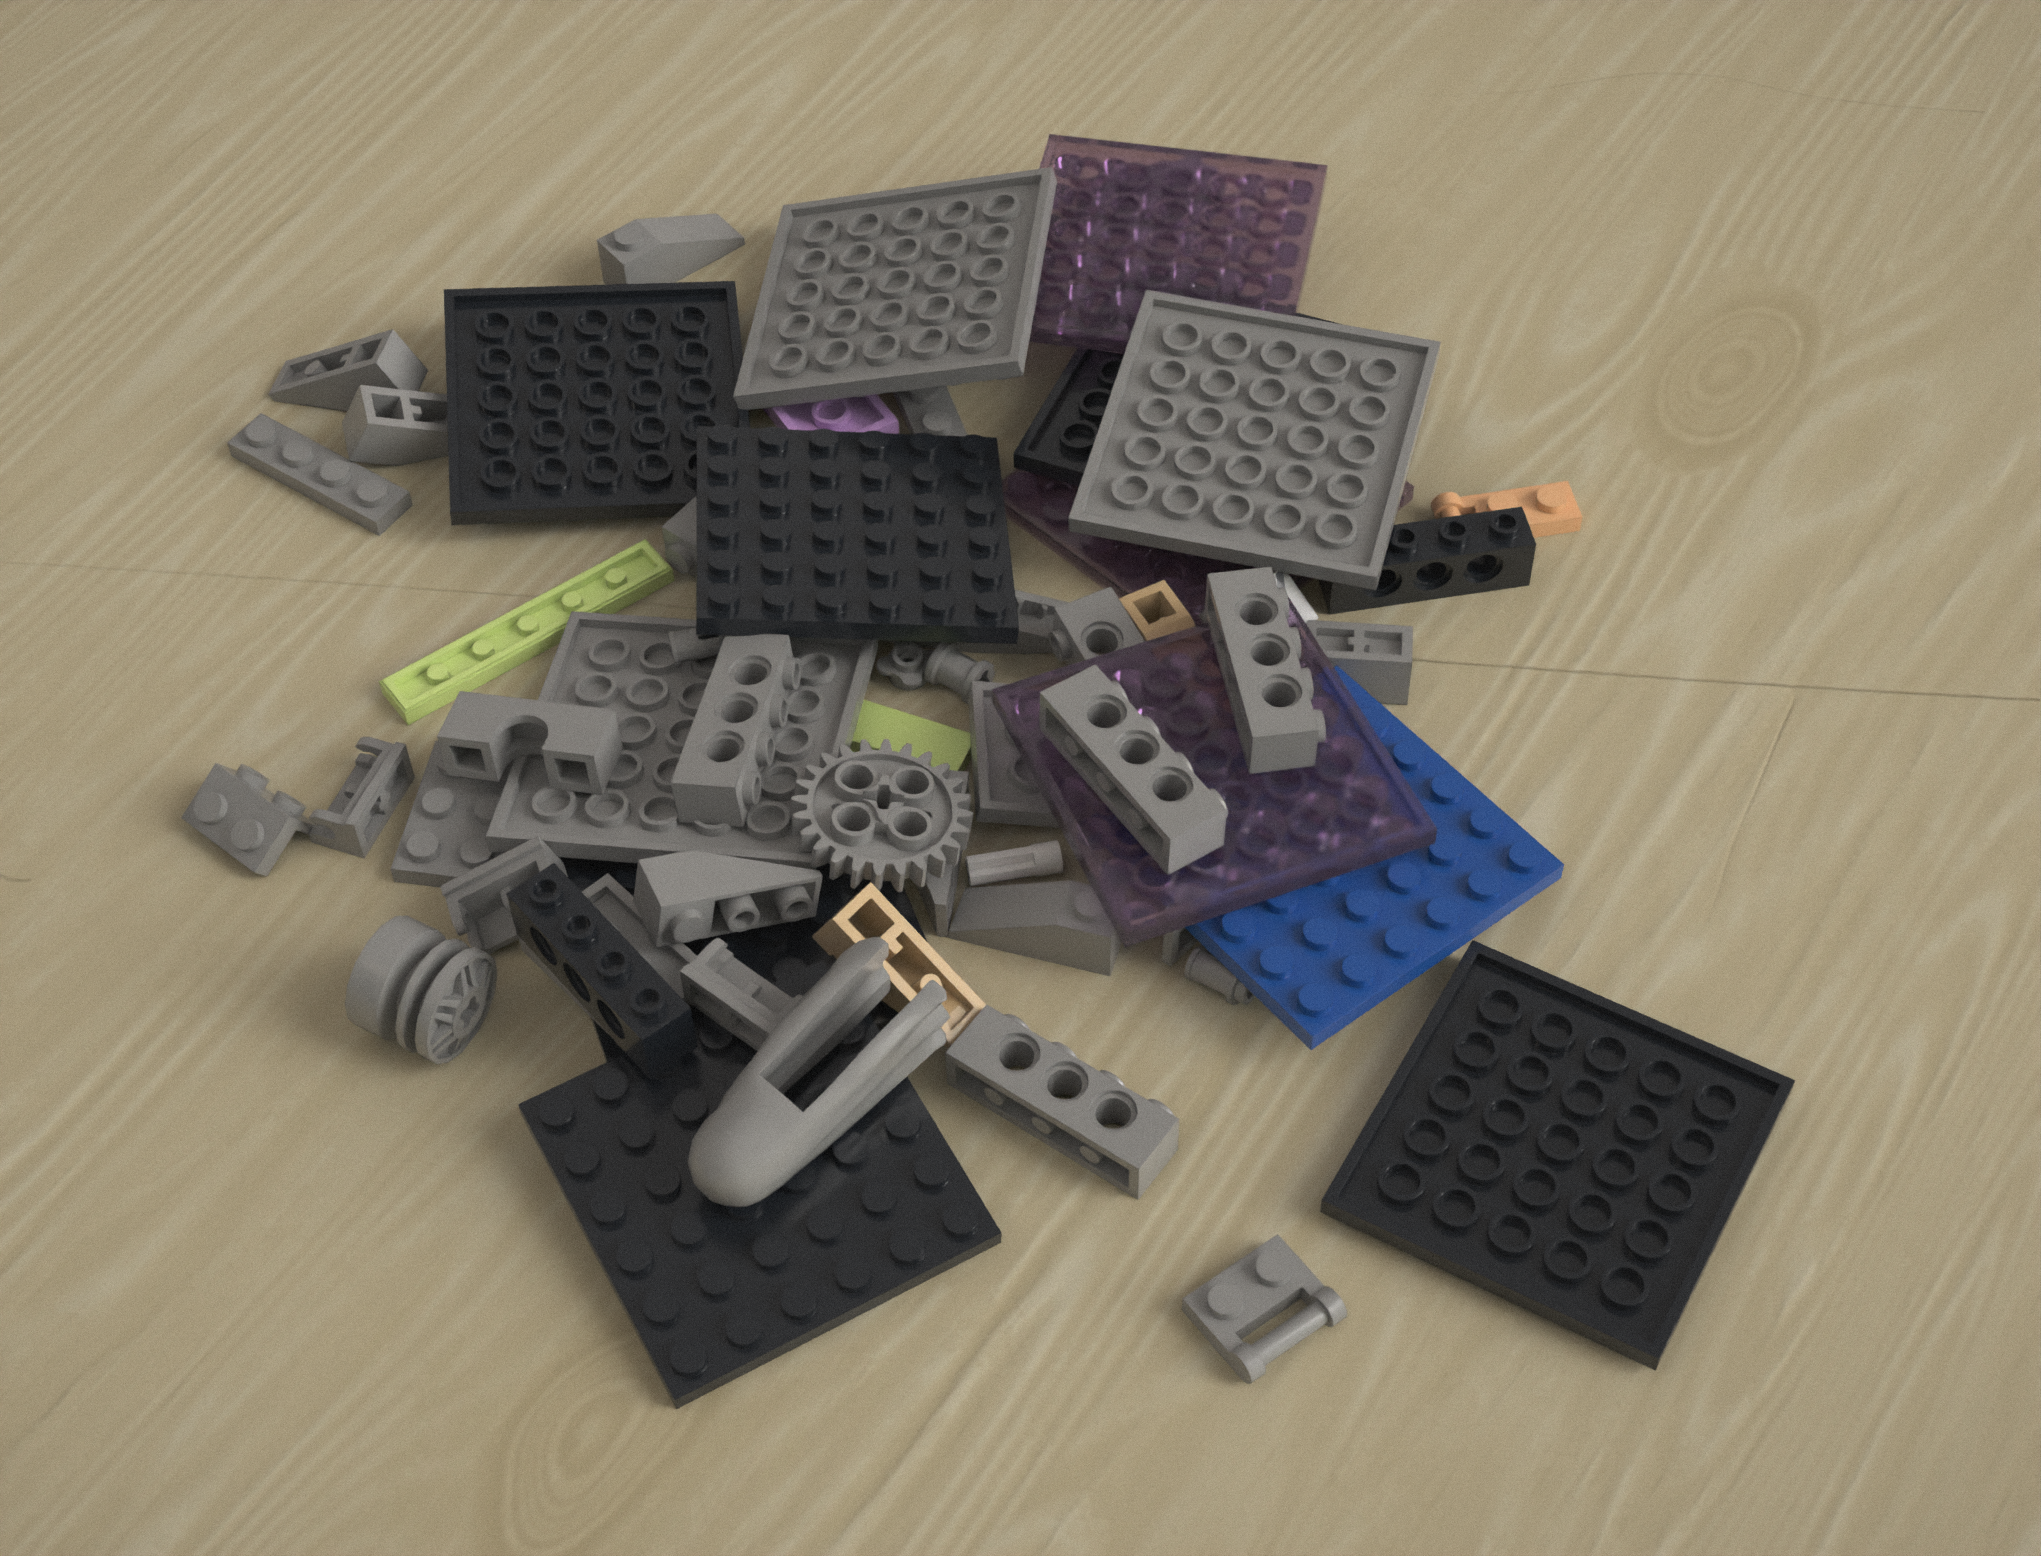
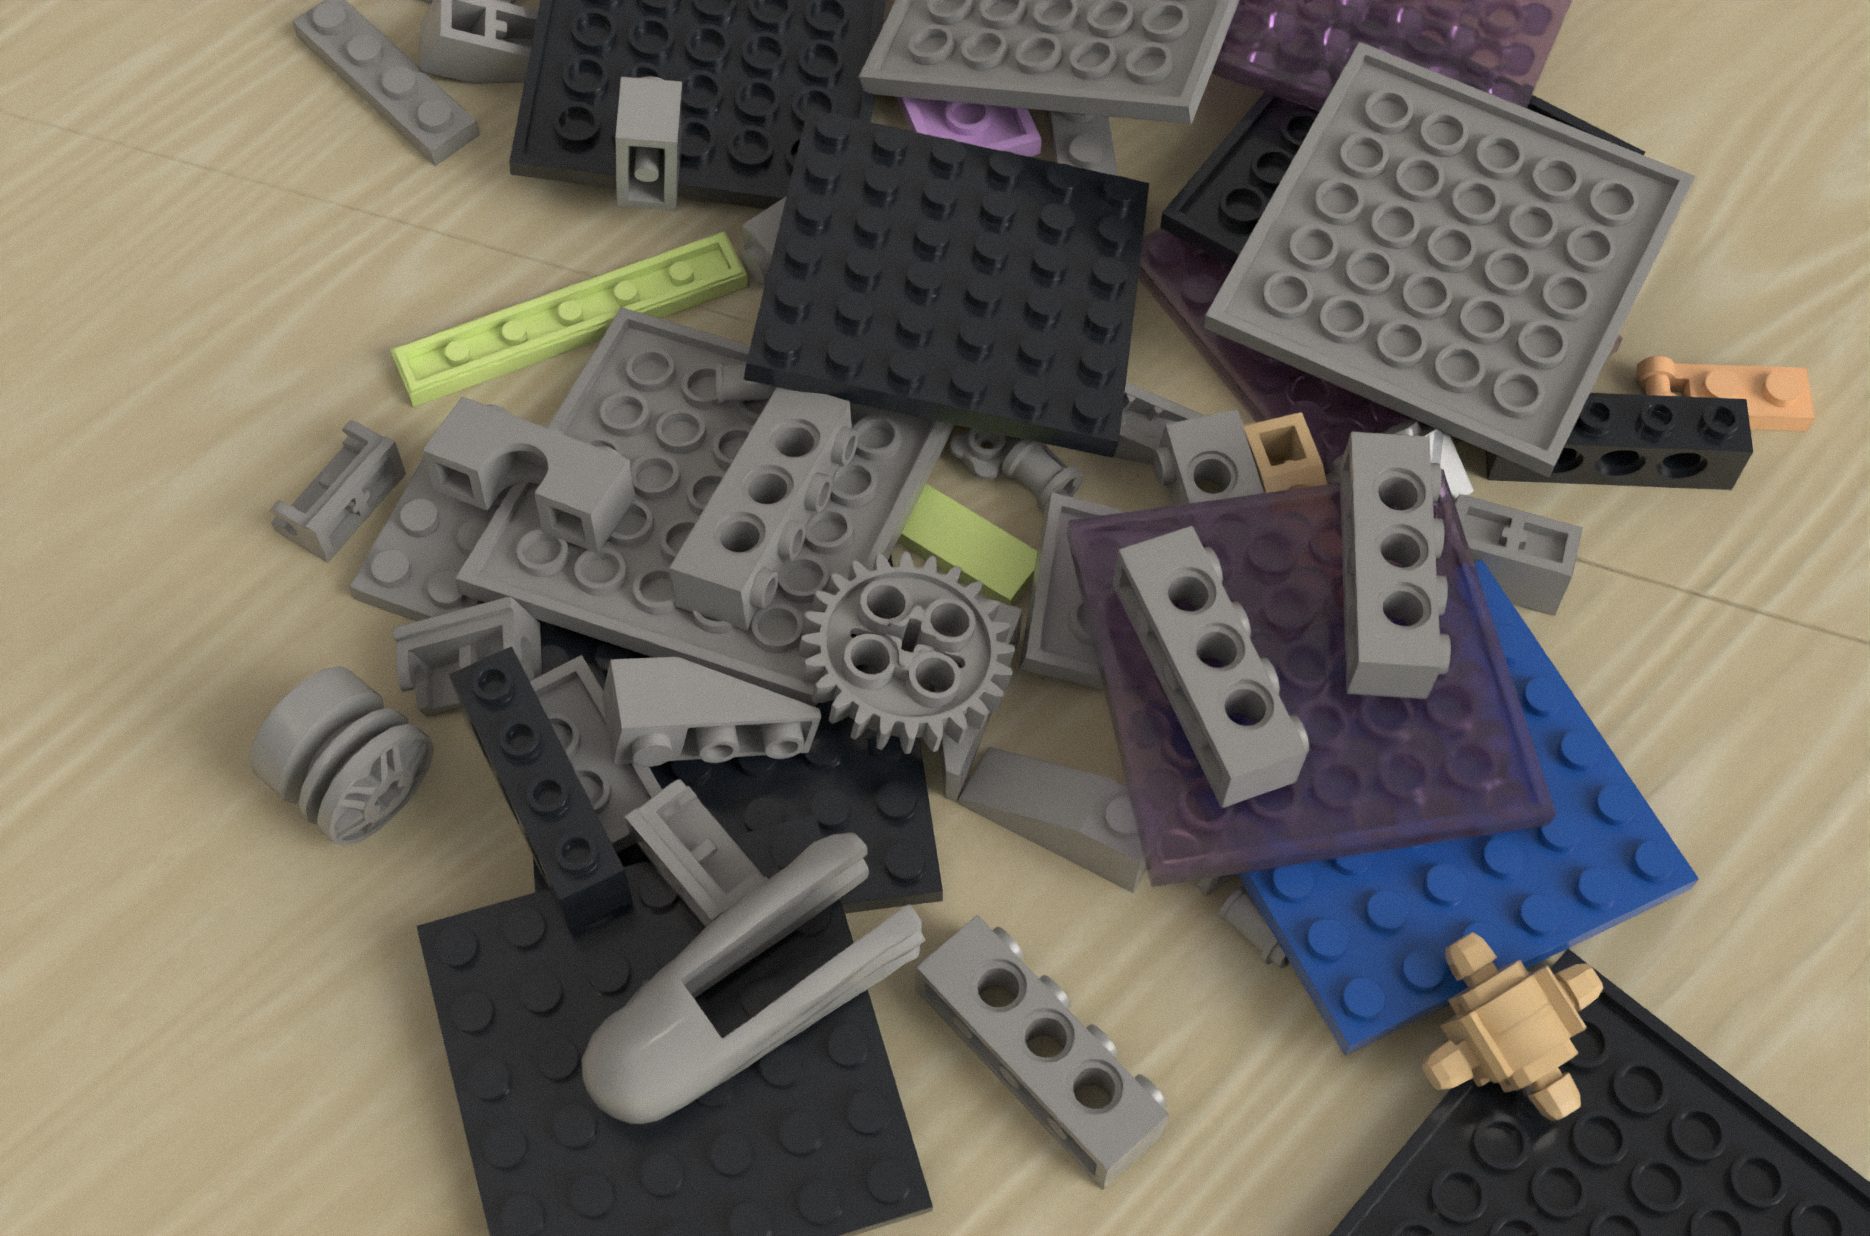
camera: 10 degrees right, 10 degrees up
(245, 816) = (207, 488): light grey bracket -> none
(571, 471) = (648, 143): none -> light grey brick
(909, 961) = (902, 861): tan slope -> none
(1015, 863) = (1053, 728): white piece -> none
(1439, 994) = (1512, 1027): none -> tan piece

